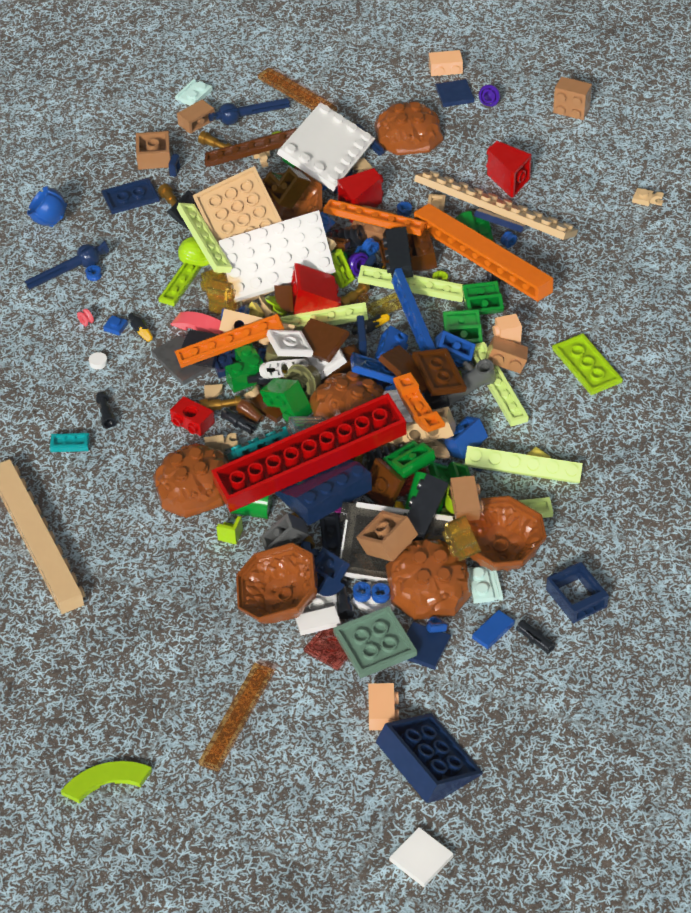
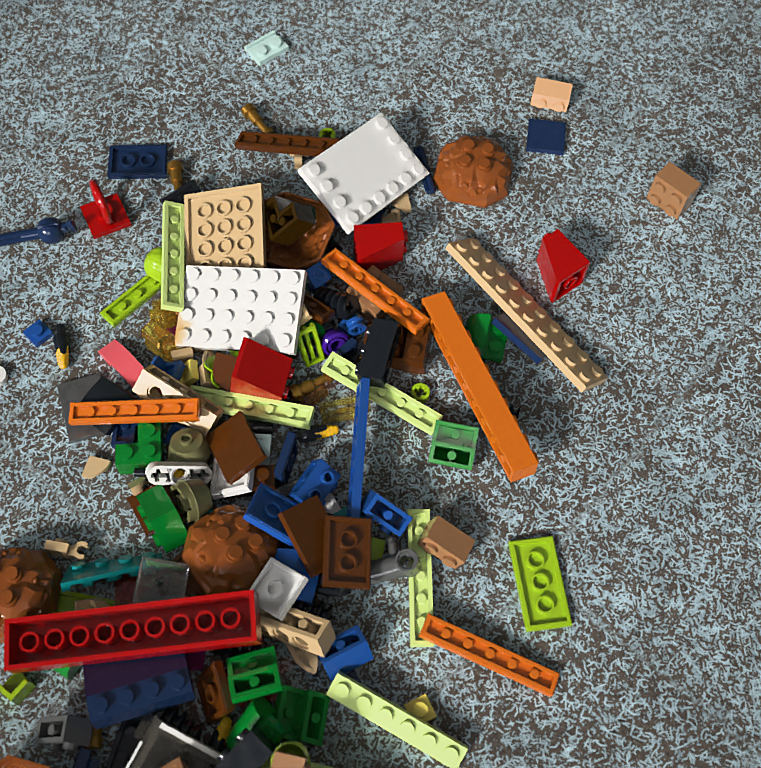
camera: 15 degrees right, 15 degrees up
(47, 207) = (37, 153): blue piece -> none
(85, 317) = (9, 312): coral bush -> none
(93, 277) = (46, 248): blue bush -> none
(126, 235) = (105, 213): none -> red tile
(153, 150) = (184, 112): medium nougat brick -> none
(174, 165) = (199, 137): dark blue tile -> none
(192, 416) = (47, 487): red brick -> none
(195, 116) = (252, 80): medium nougat brick -> none
(217, 404) = (79, 486): pearl gold piece -> none
(230, 113) = (288, 89): dark blue piece -> none
(238, 420) = (104, 521): black pin -> none
(245, 300) = (182, 354): none -> tan tile
(249, 411) = (121, 512): reddish brown cone -> none
(289, 343) = (196, 443): white tile -> none
(292, 89) = (375, 82): clear orange tile -> none
(404, 205) = (422, 273): blue bush -> none
(416, 404) = (290, 610): orange slope -> none
(437, 201) = (459, 284): tan plate -> none
(464, 324) = (411, 481): green brick -> none
(489, 94) = (582, 154): dark purple brick -> none
(508, 239) = (521, 364): blue bush -> none
(508, 328) = (458, 511): light nougat brick -> none
(570, 411) = (489, 655): none -> orange tile
(645, 197) = (707, 355): tan plate -> none

